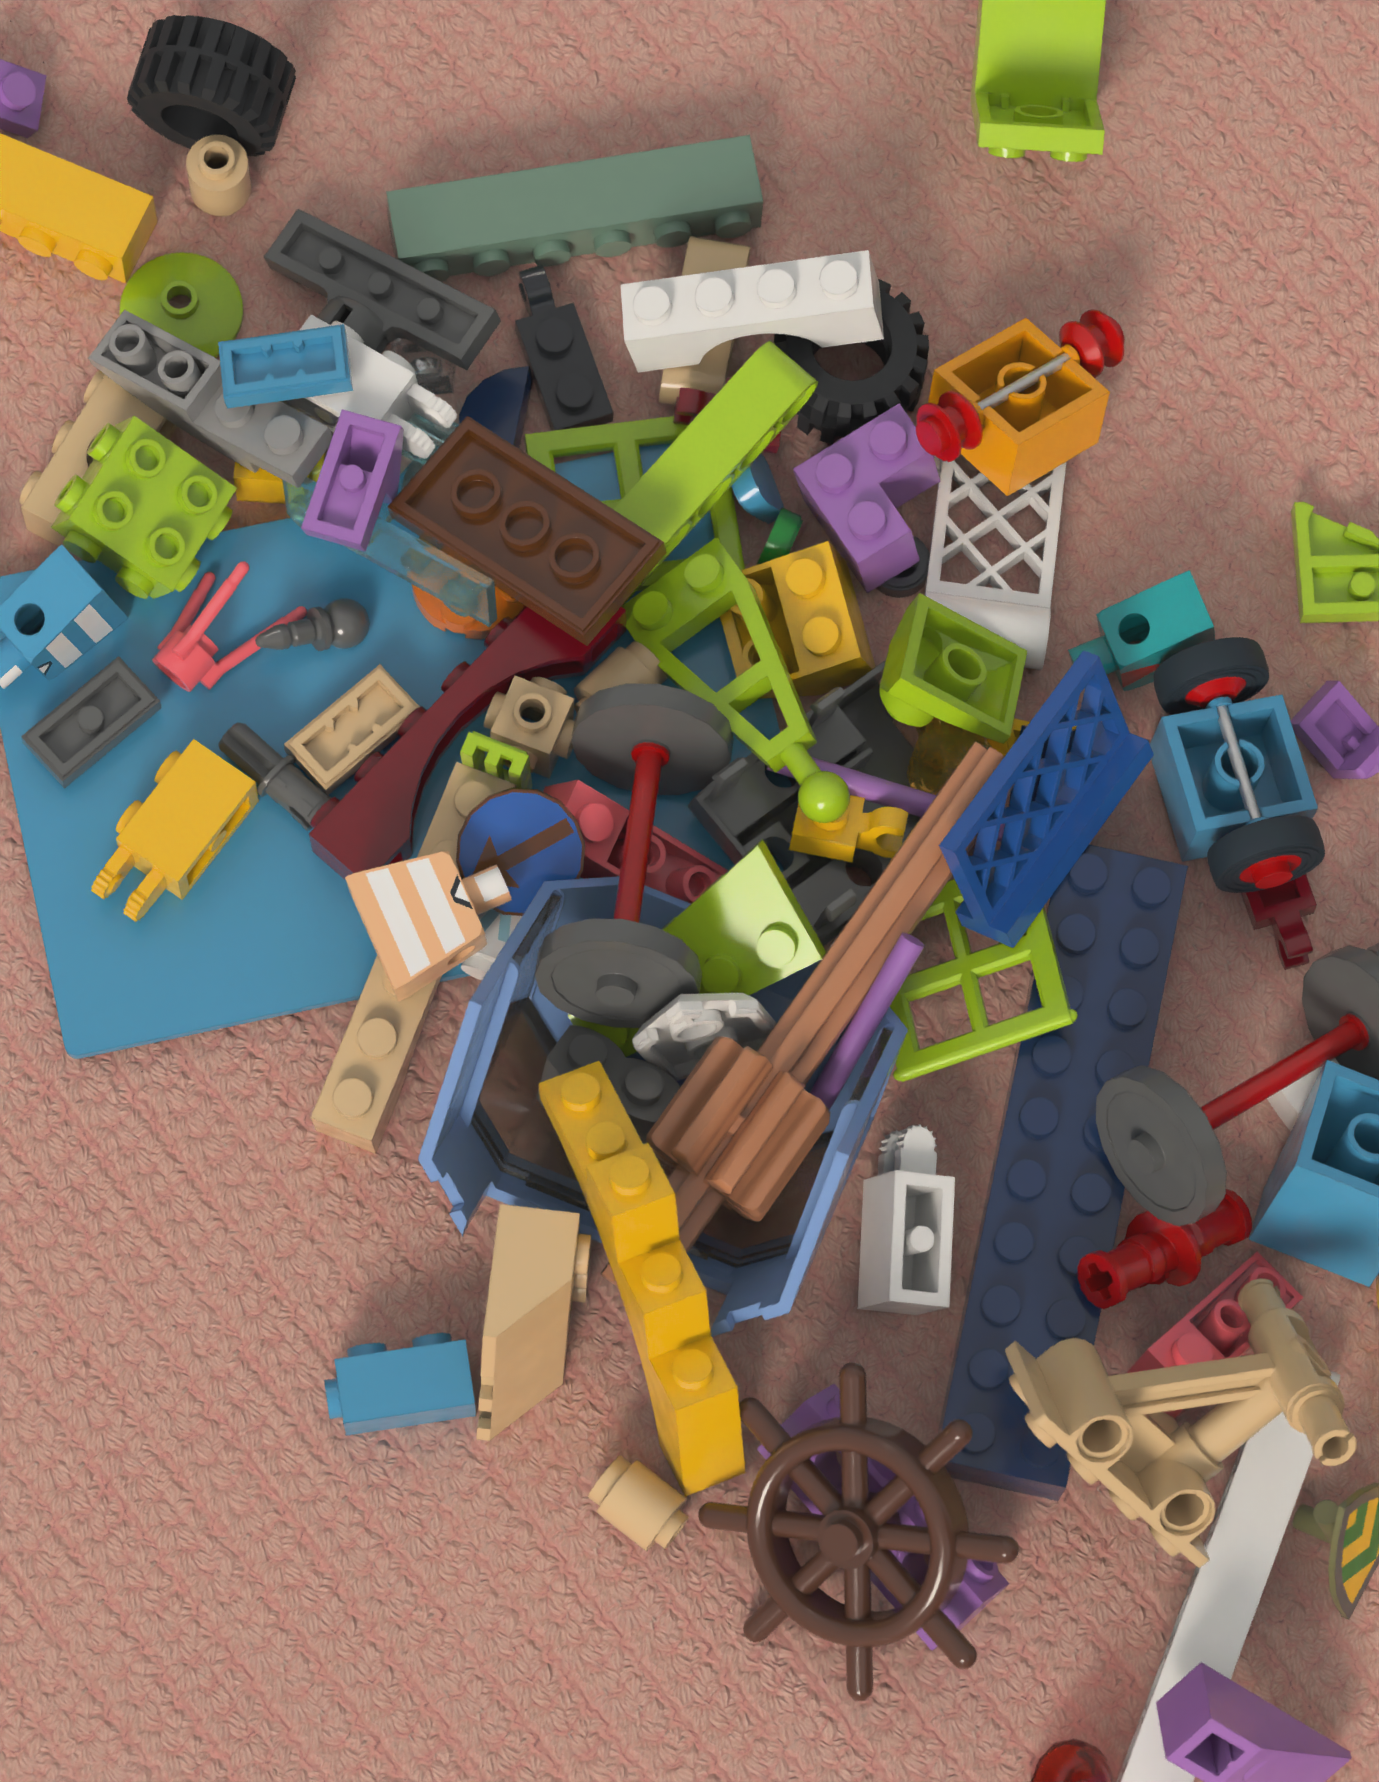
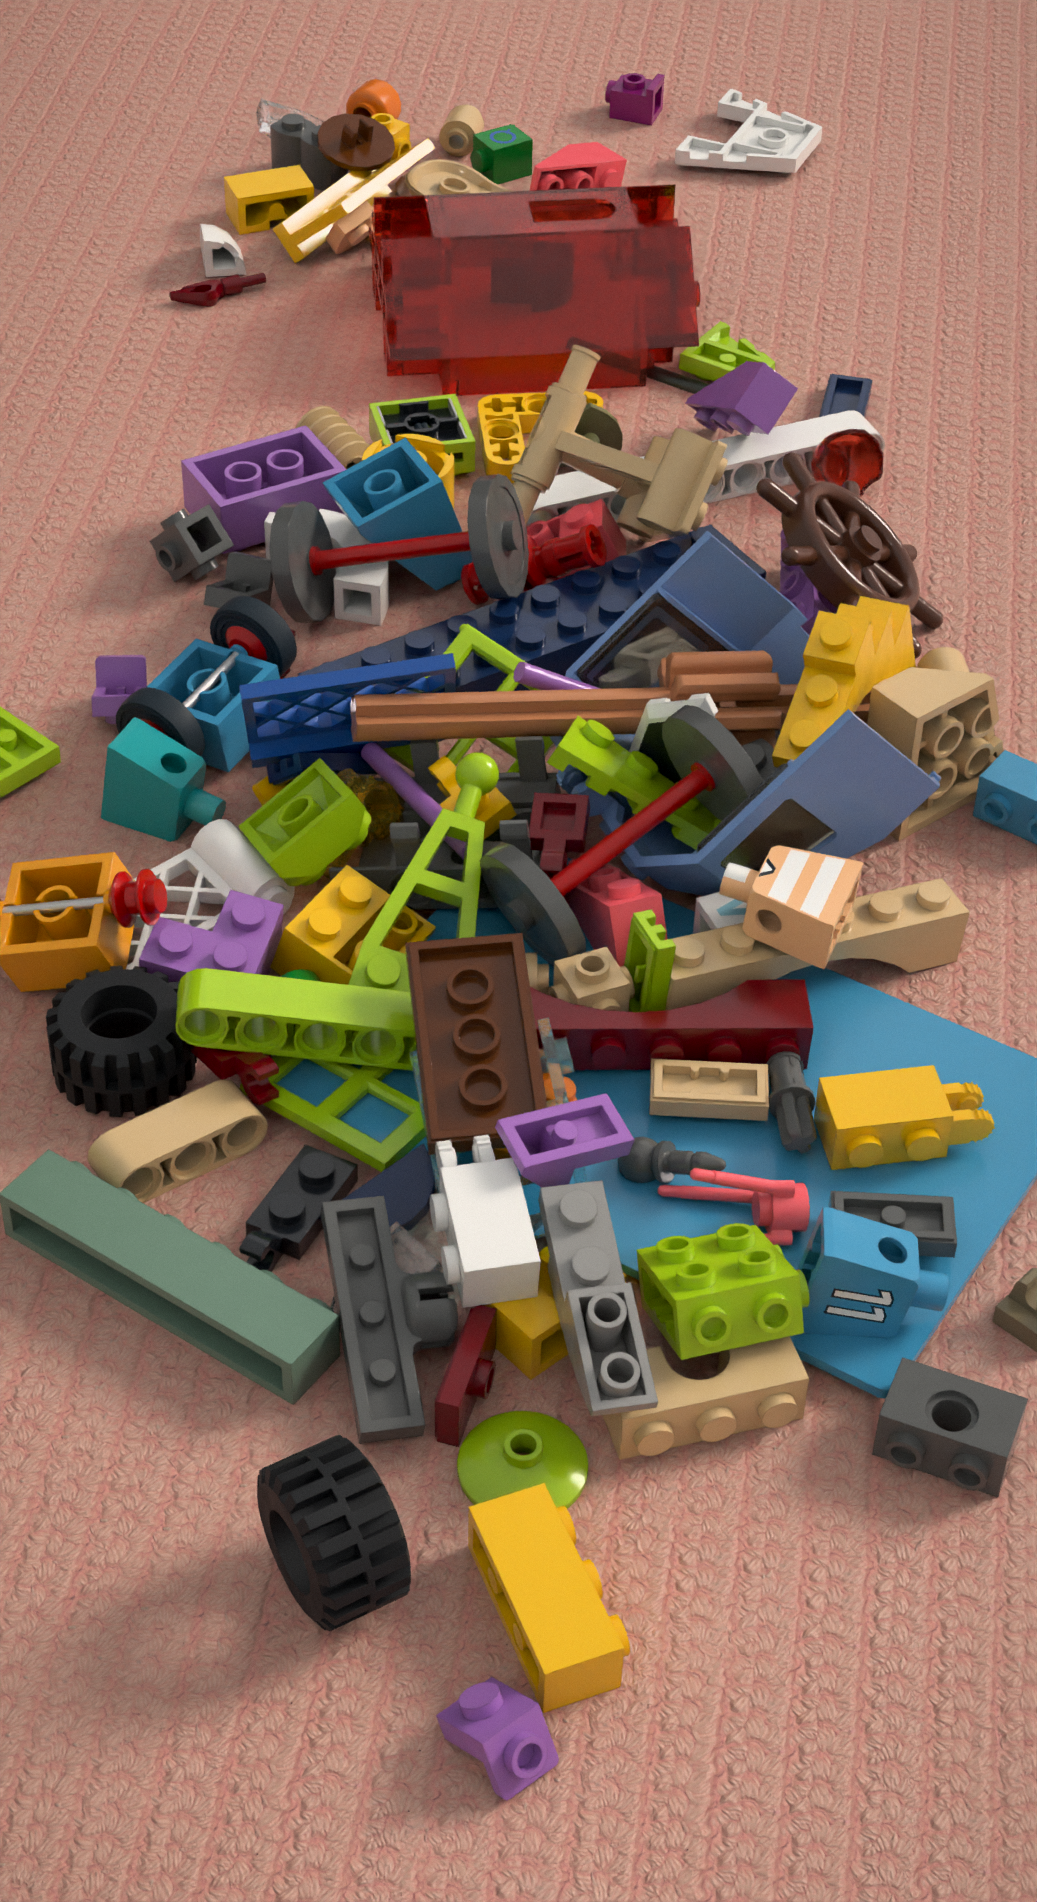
camera: 130 degrees left, 30 degrees down
(218, 175) = (408, 1486): tan brick -> none
(271, 308) = (467, 1375): none -> dark red plate
(285, 366) = (531, 1231): dark azure plate -> none
(527, 838) = (689, 902): blue piece -> none
(707, 830) = (558, 827): none -> dark red plate
(816, 298) = (207, 1088): white arch -> none

